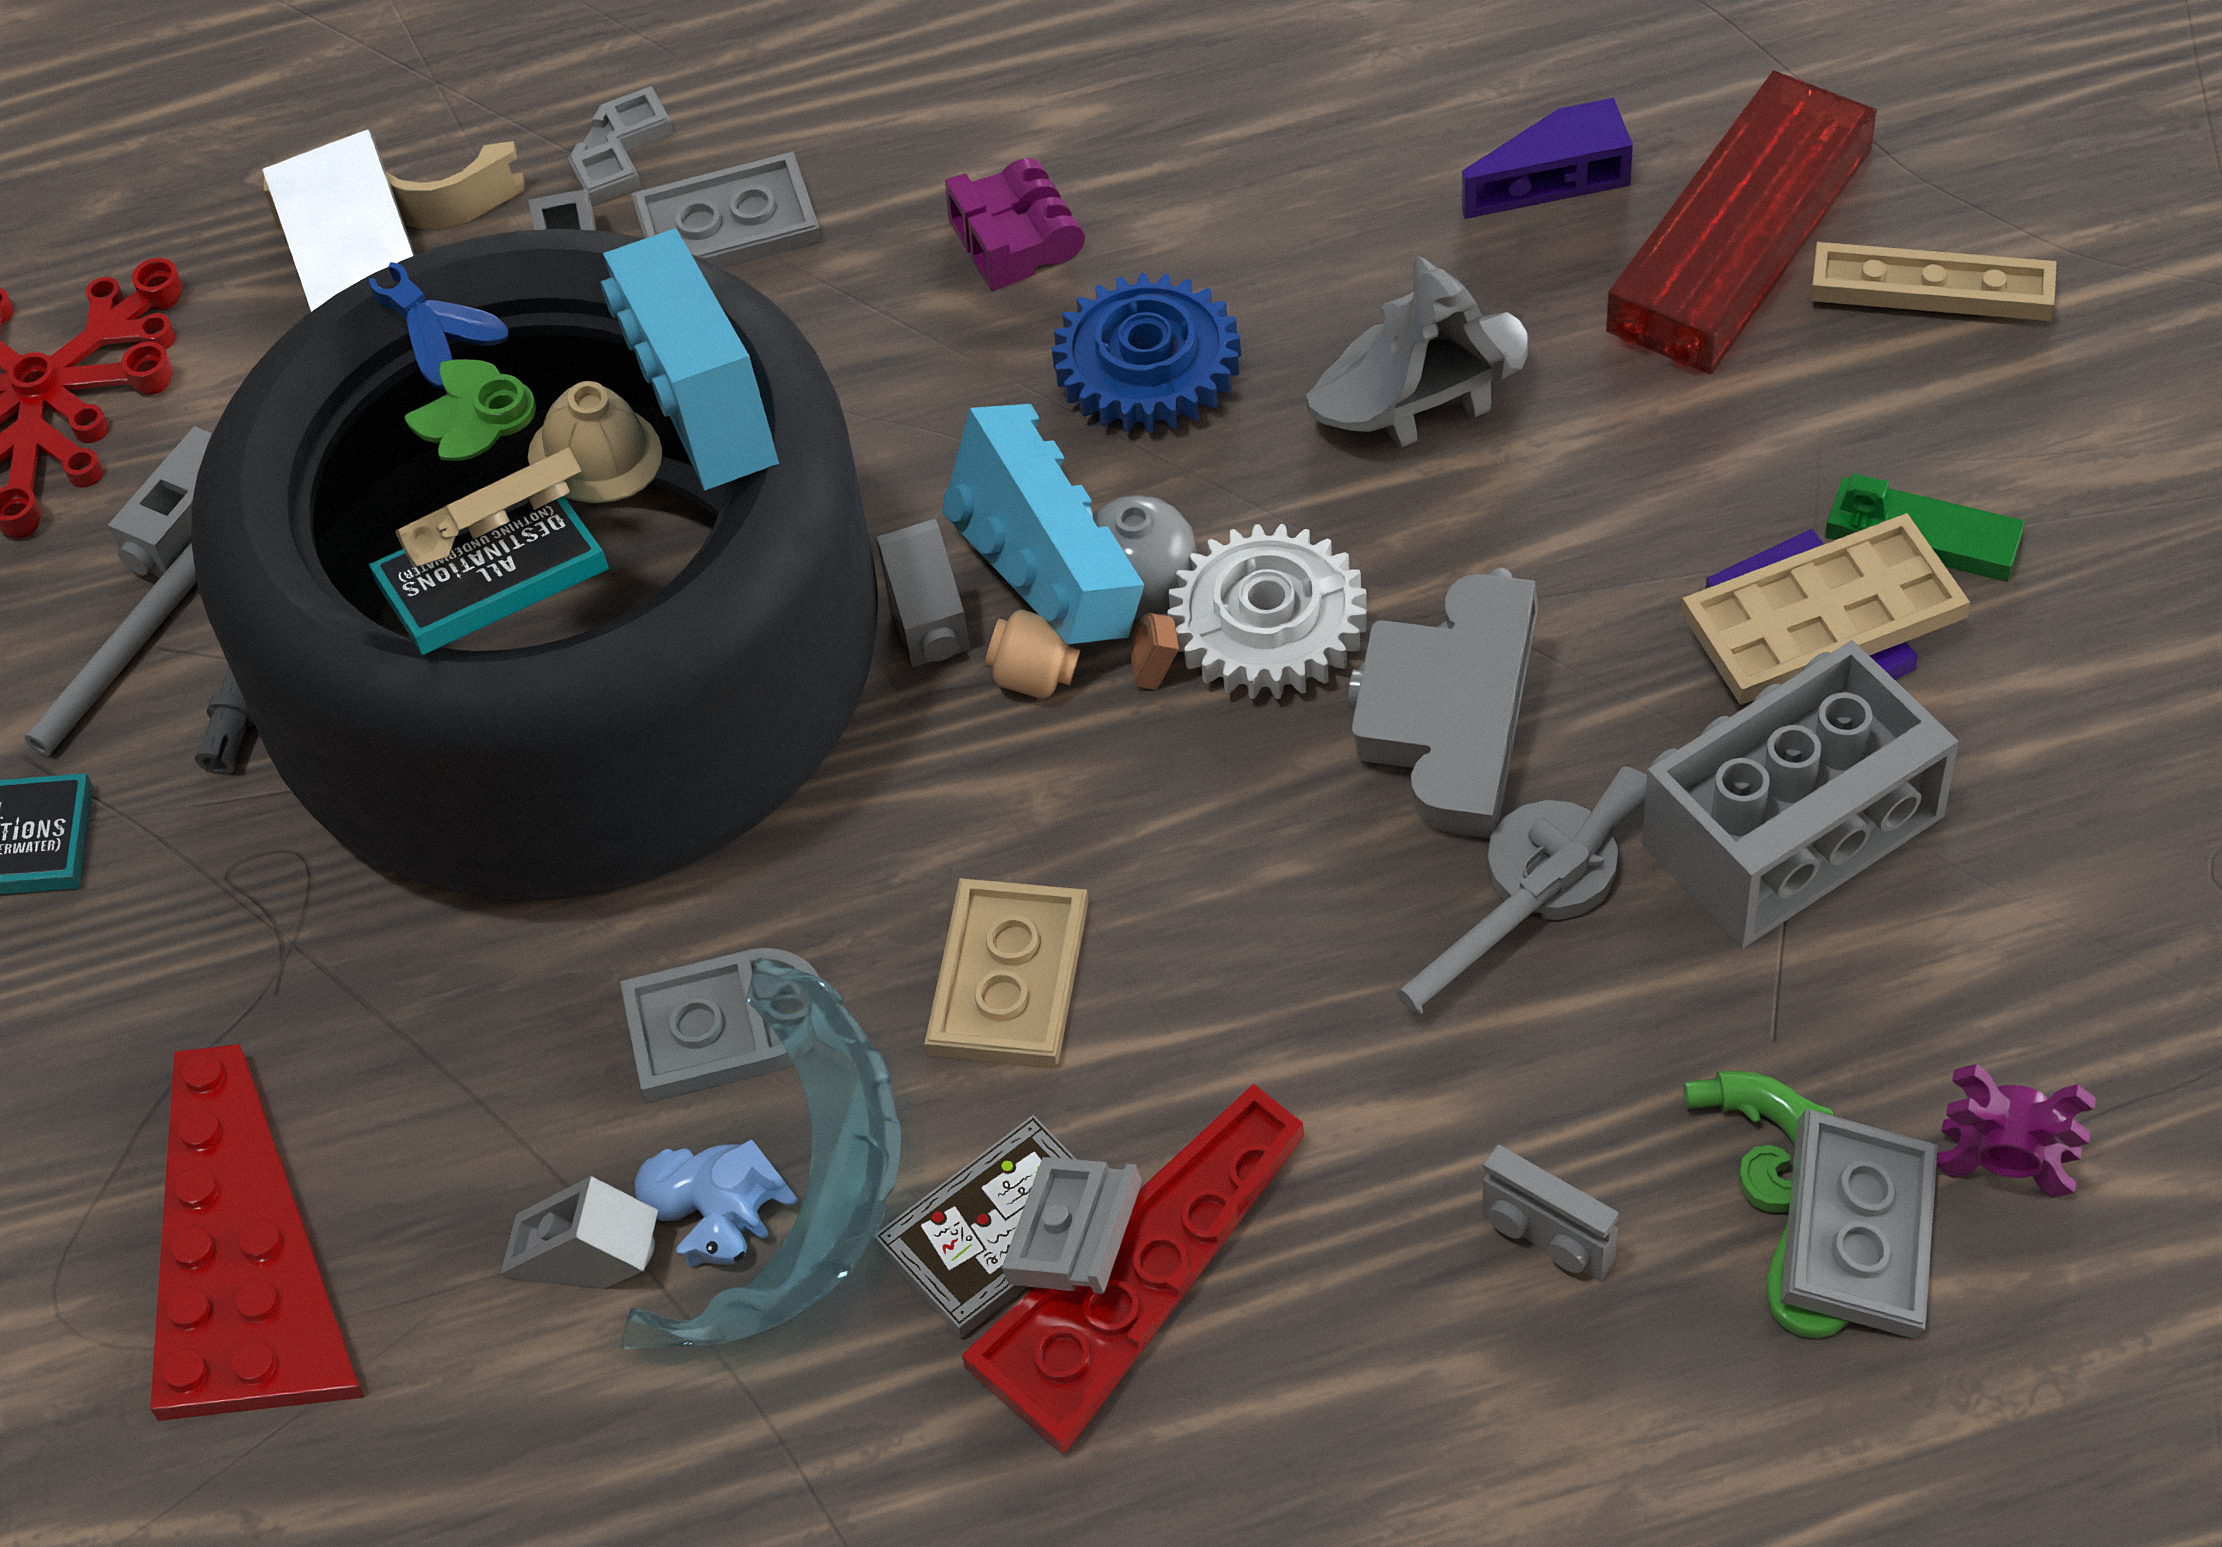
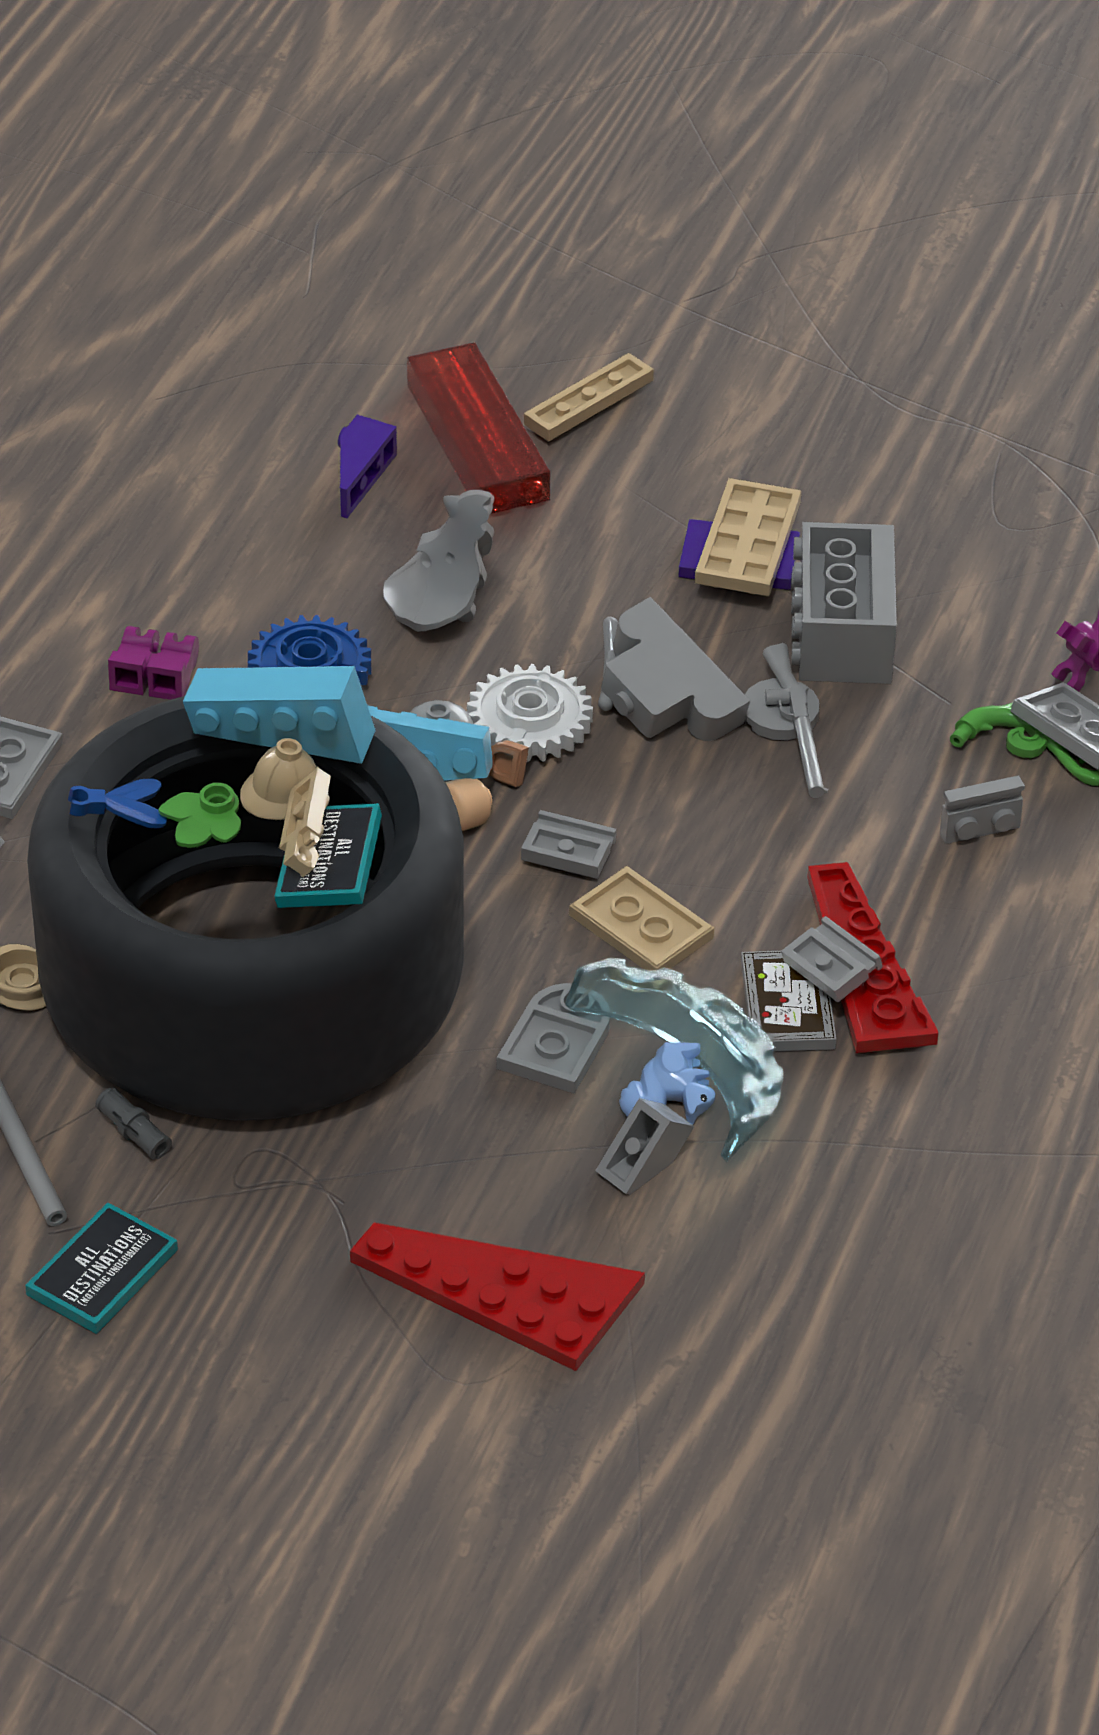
camera: 60 degrees left, 10 degrees down
(1068, 805) = (568, 844): none -> light grey plate
(1958, 534) = (703, 494): green hinge -> none

